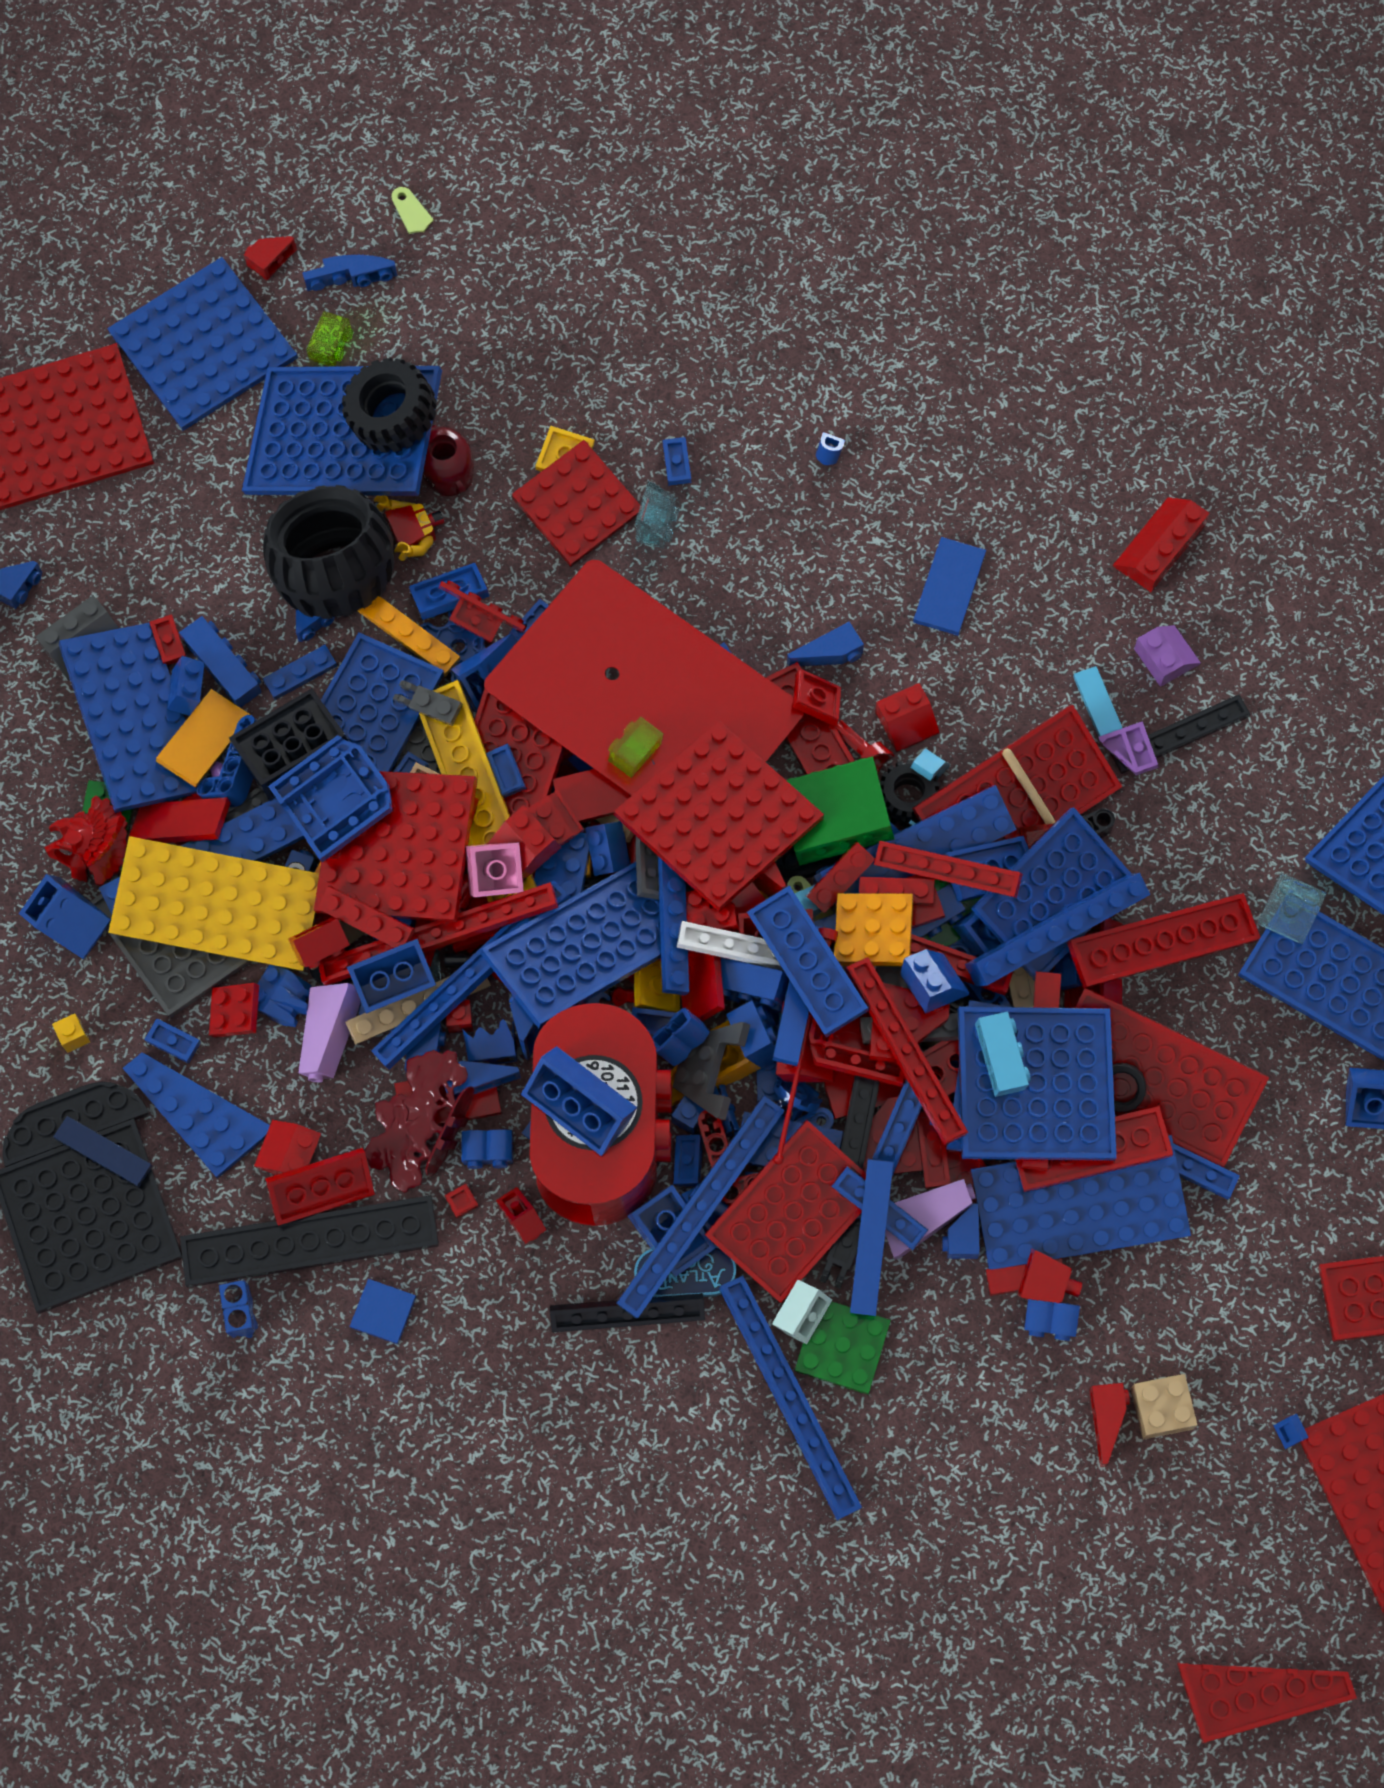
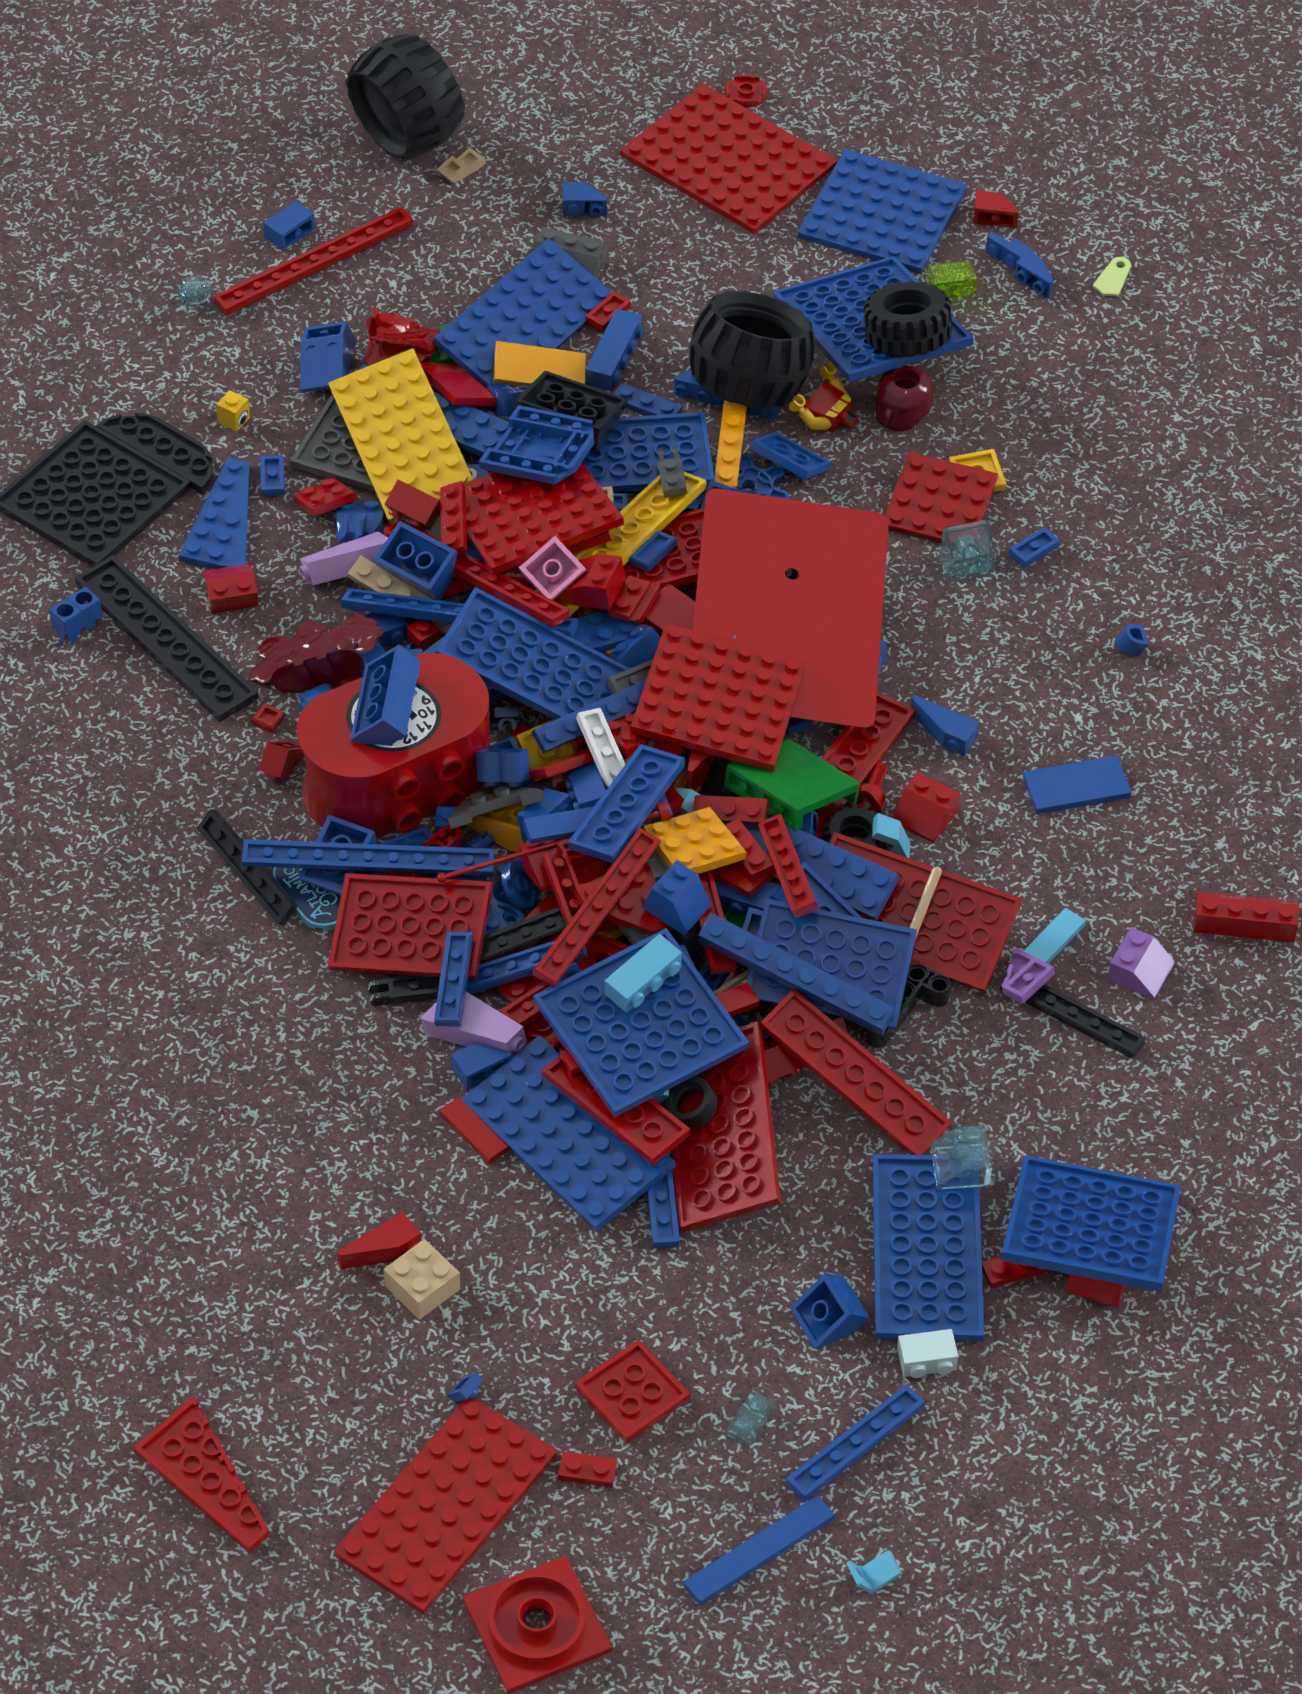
camera: 55 degrees right, 20 degrees down
(103, 1151) = (148, 474): dark blue tile -> none
(185, 685) = (574, 333): blue brick -> none
(320, 1186) = (212, 613): red plate -> none
(383, 1311) = (139, 712): blue tile -> none
(477, 616) = (777, 471): red bracket -> none
(635, 746) = (734, 612): clear neon green brick -> none
(790, 1398) = (247, 1010): blue plate -> none
(802, 1311) = (328, 978): light aqua brick -> none
(817, 697) = (891, 732): red tile -> none
(844, 1348) = (320, 1029): green plate -> none
(871, 1237) = (423, 983): blue tile -> none
(1047, 1279) = (478, 1135): red torso -> none
(1051, 1318) = (447, 1160): blue brick -> none

